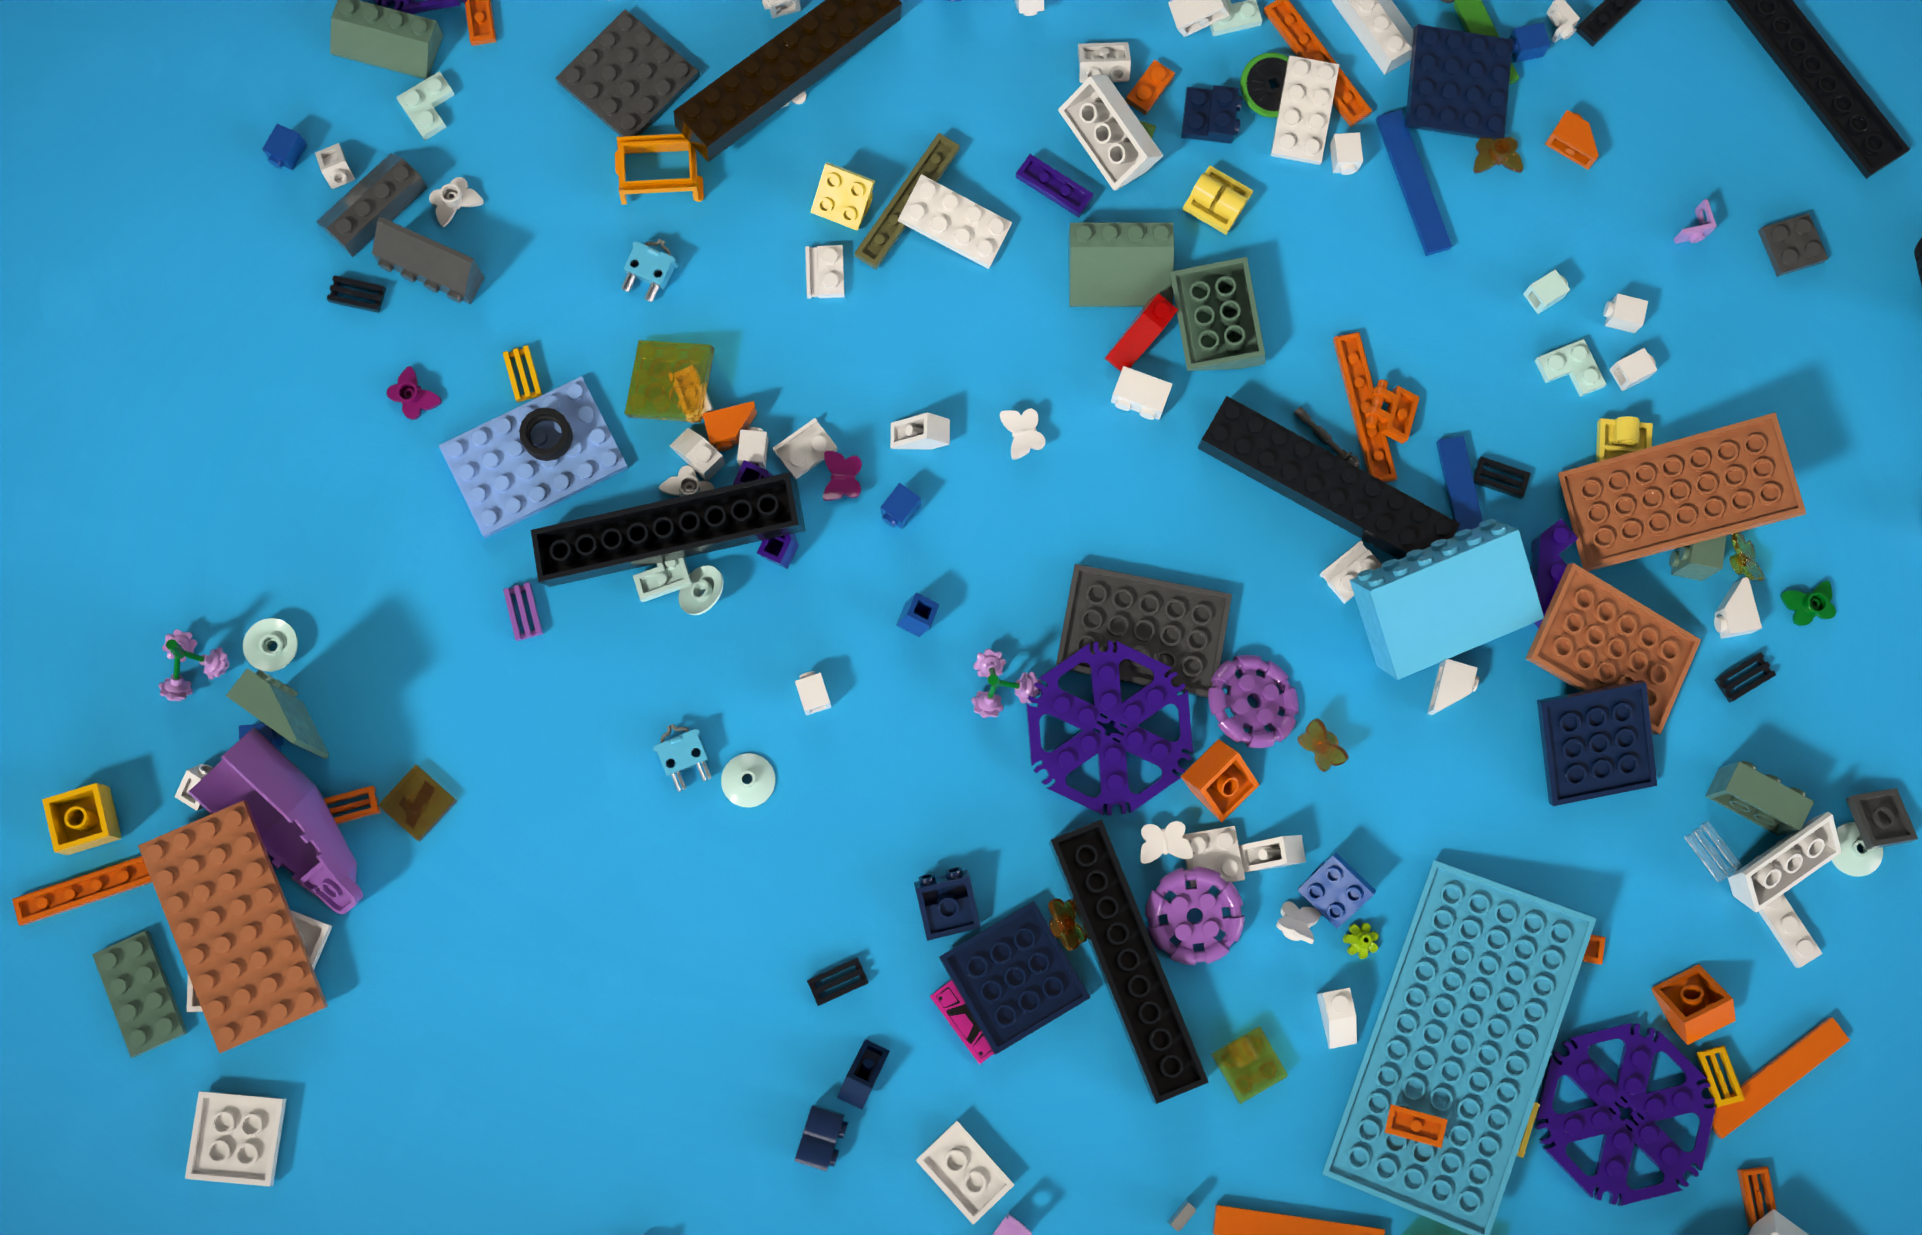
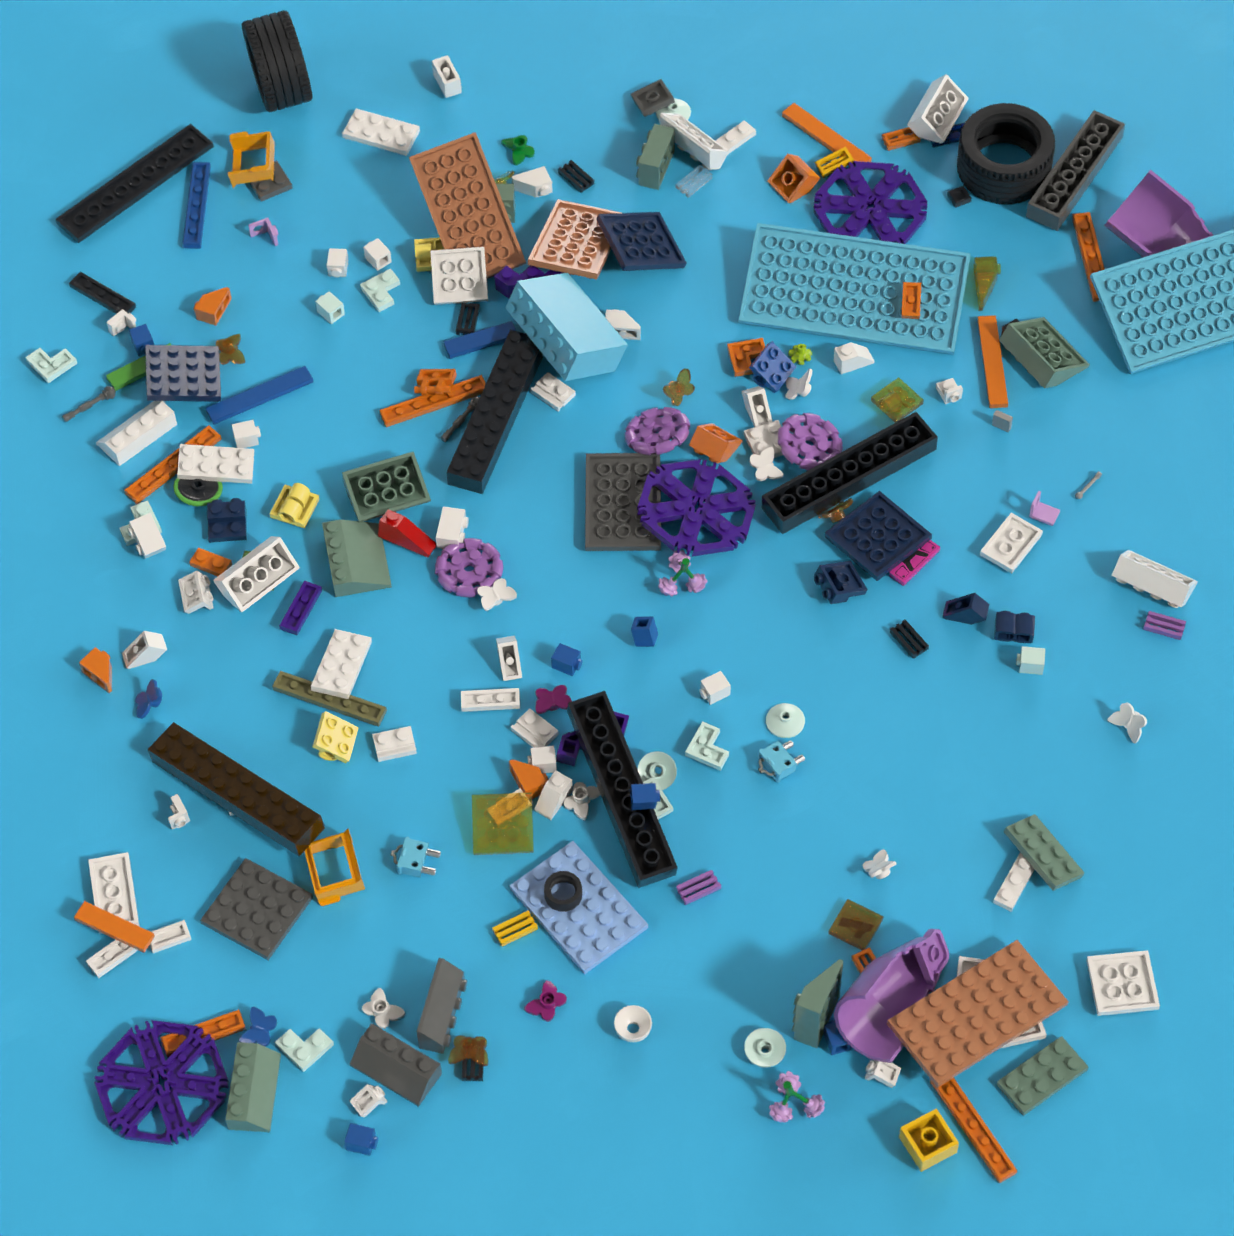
camera: 95 degrees left, 20 degrees down
(336, 479) = (633, 1015): none -> white piece
(364, 288) = (469, 1048): none -> clear orange animal
(425, 1033) = (1014, 883): none -> white plate
(453, 1082) = (1044, 852): none -> sand green plate
(456, 54) = (260, 1028): none -> blue animal
(489, 850) = (879, 866): none -> white animal
(632, 549) = (644, 796): none -> blue brick
(725, 657) = (703, 750): none -> light aqua plate
(759, 1147) = (1031, 660): none -> light aqua brick
(861, 399) = (490, 699): none -> white plate
(1081, 393) = (470, 557): none -> medium lavender plate
(1254, 1149) = (949, 391): none -> white bracket
(1374, 851) = (742, 352): none -> orange plate
(1571, 471) = (459, 275): none -> white plate
(1761, 143) = (196, 205): none -> blue tile
(1862, 221) = (244, 142): none -> light orange piece
(1866, 412) = (381, 132): none -> white plate

